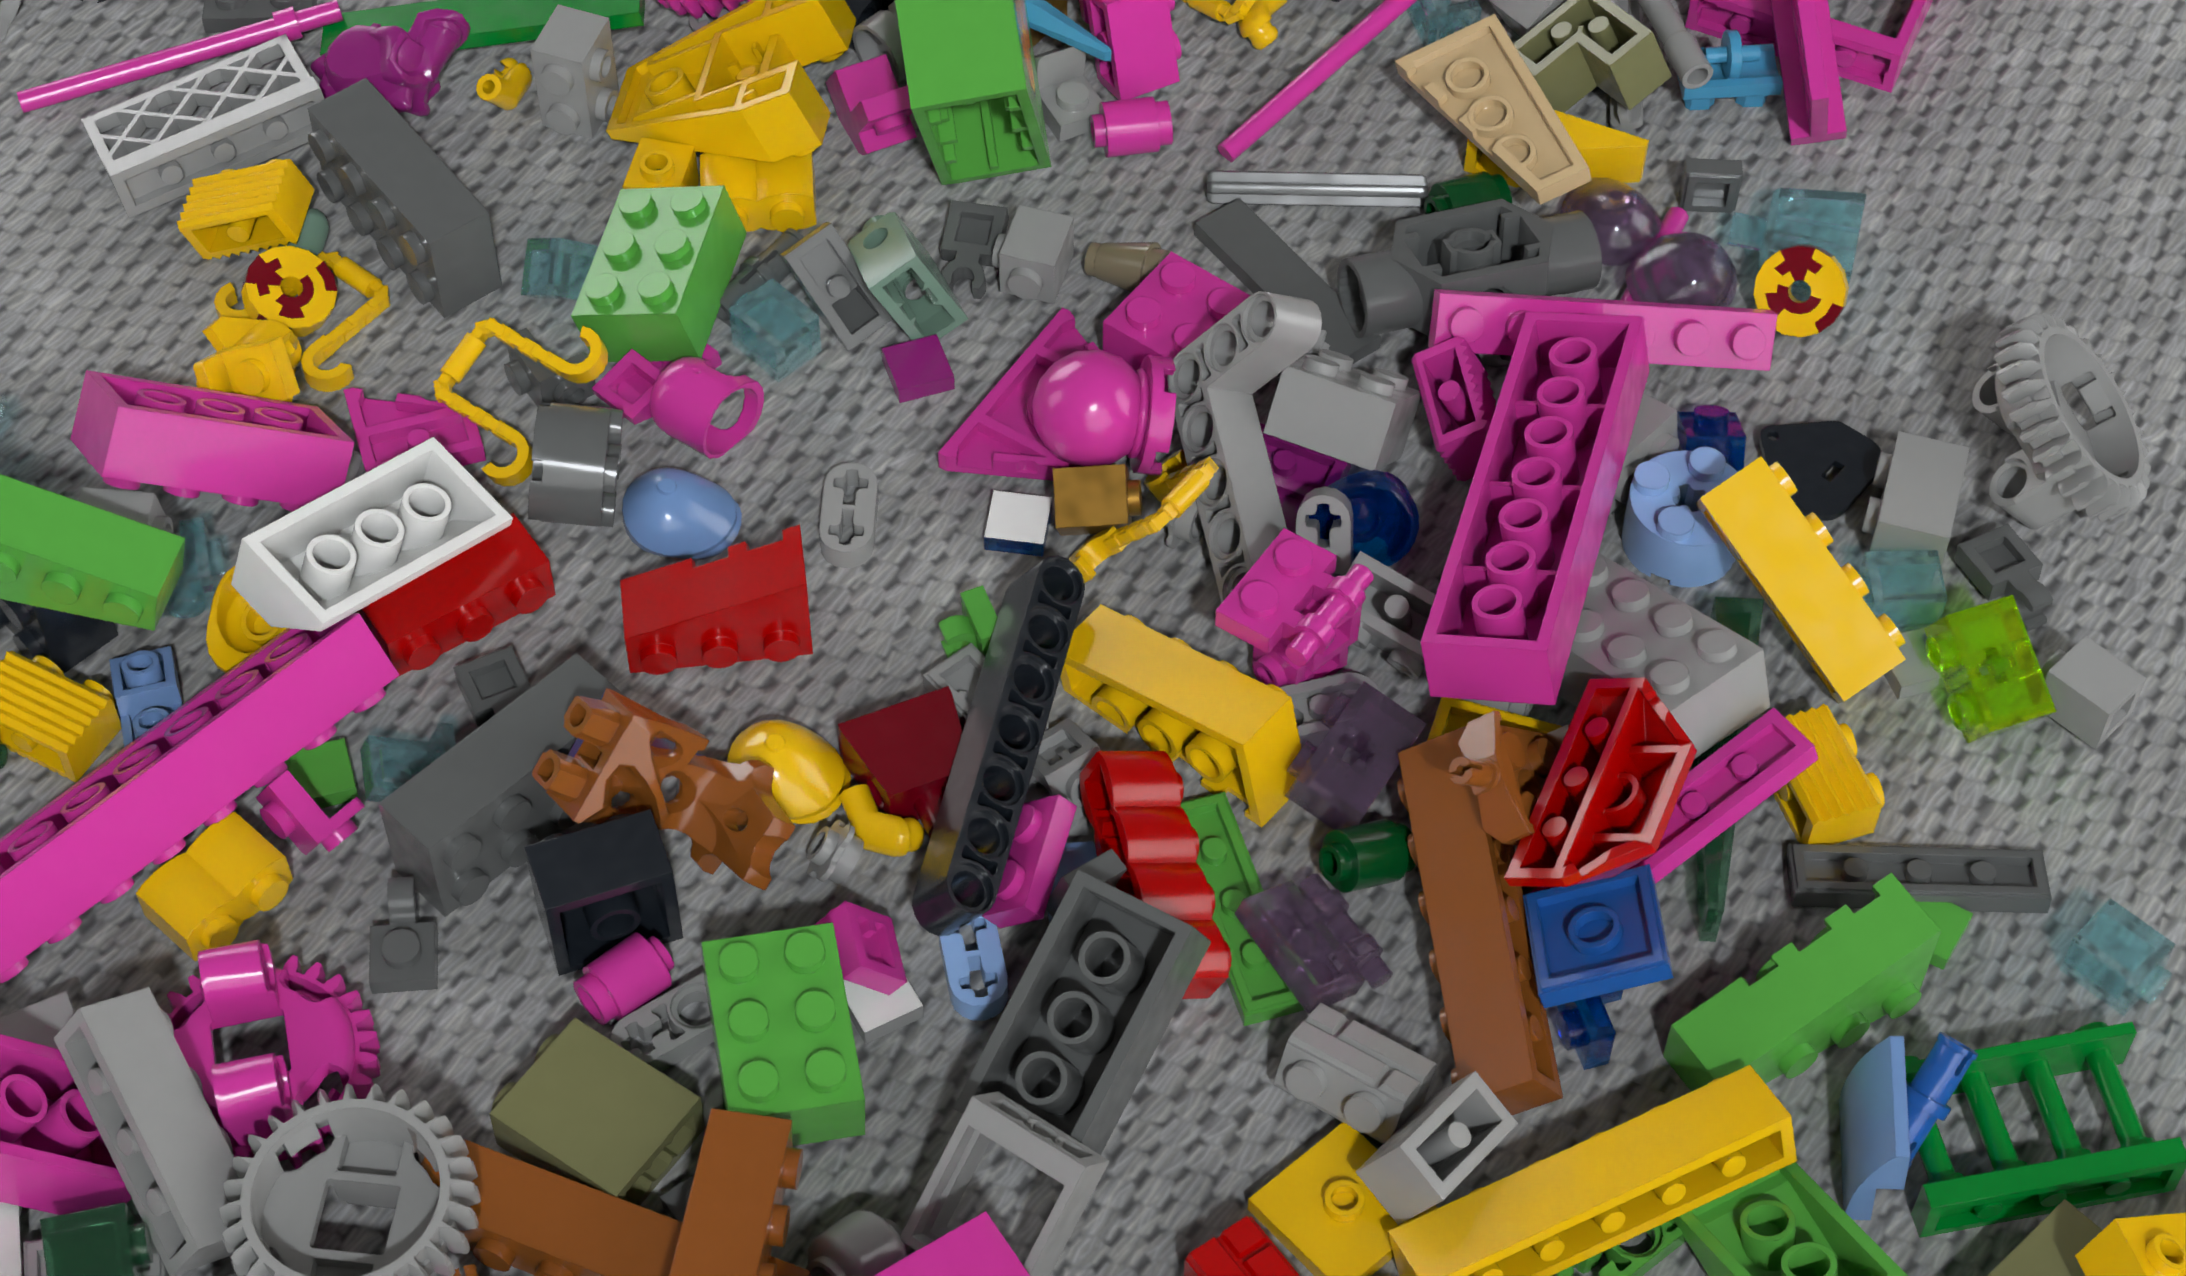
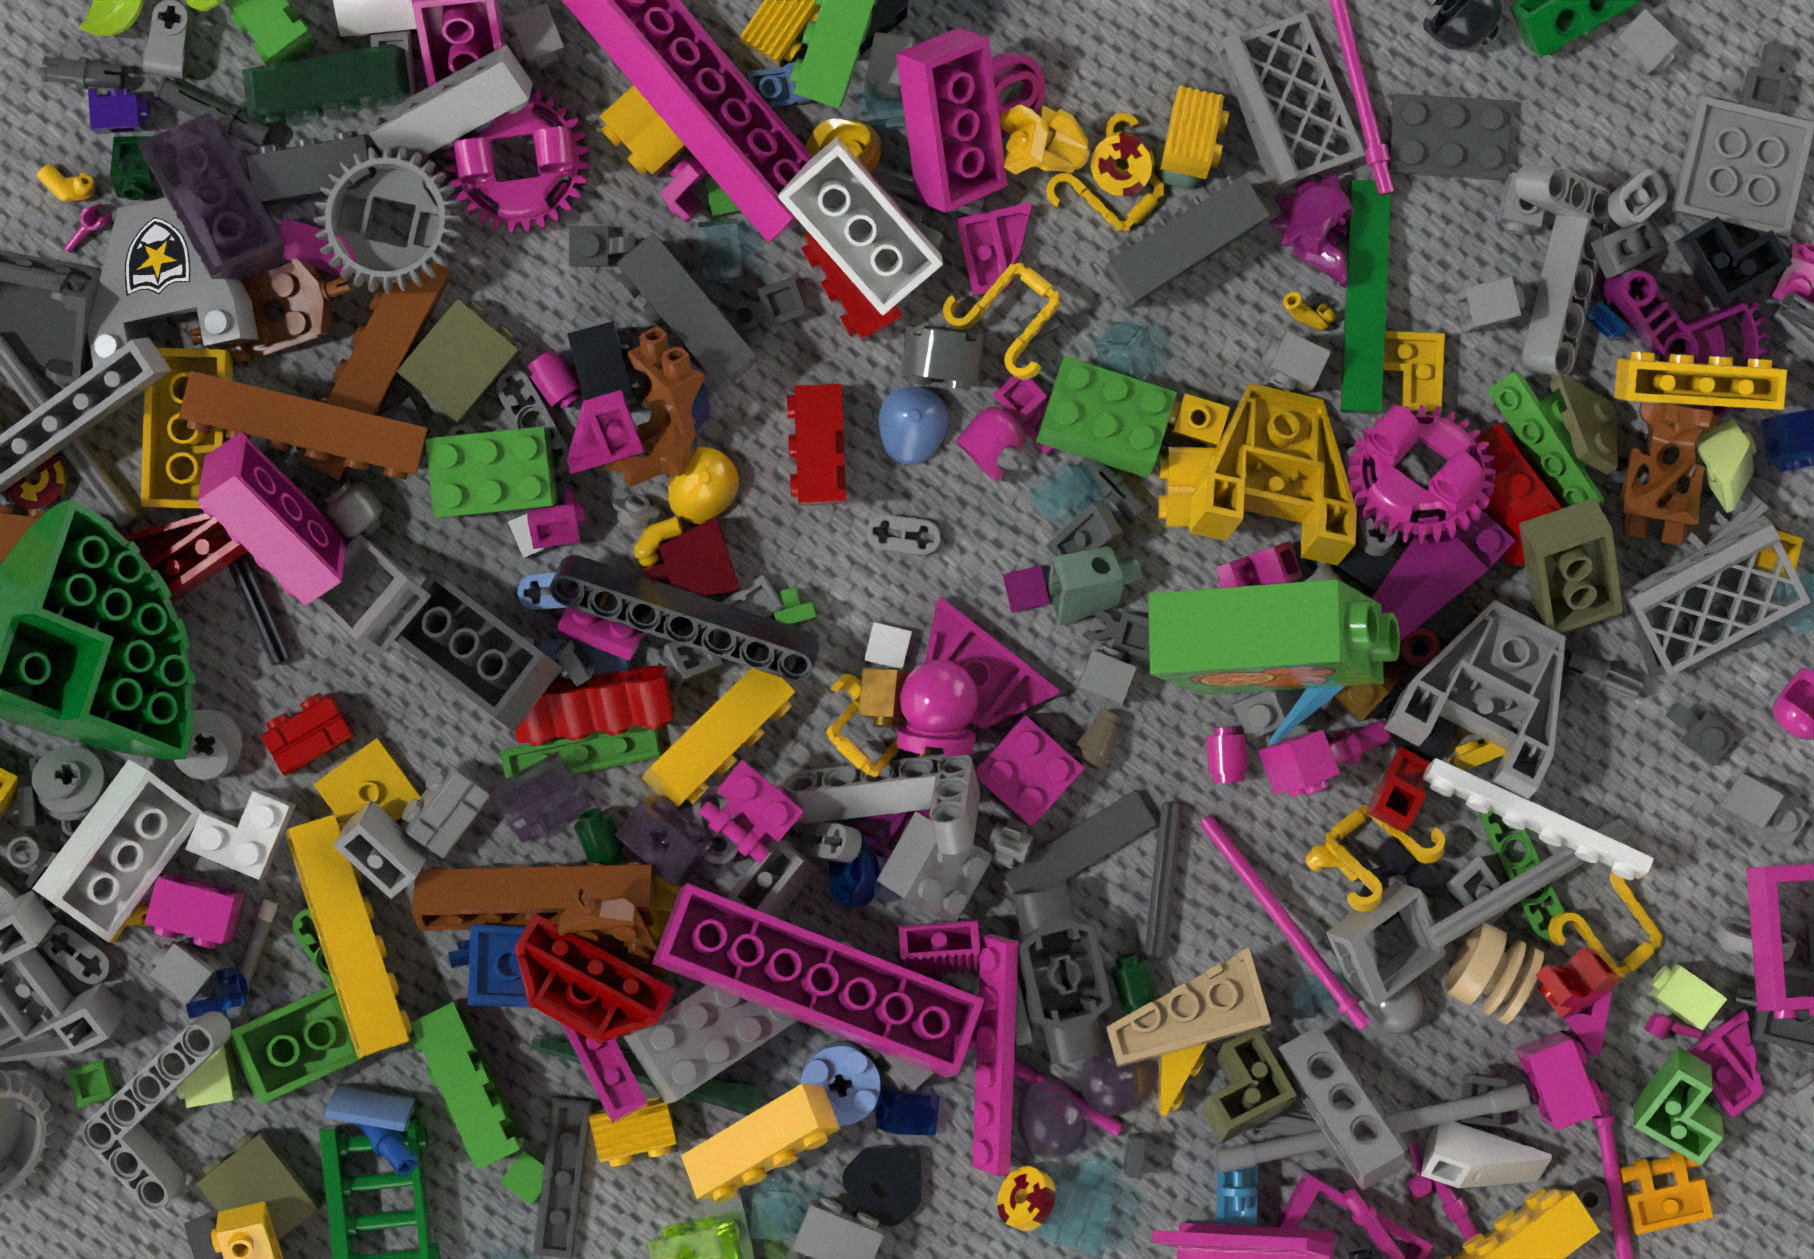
camera: 95 degrees right, 35 degrees up
(709, 851) = (603, 433): none -> dark pink wing

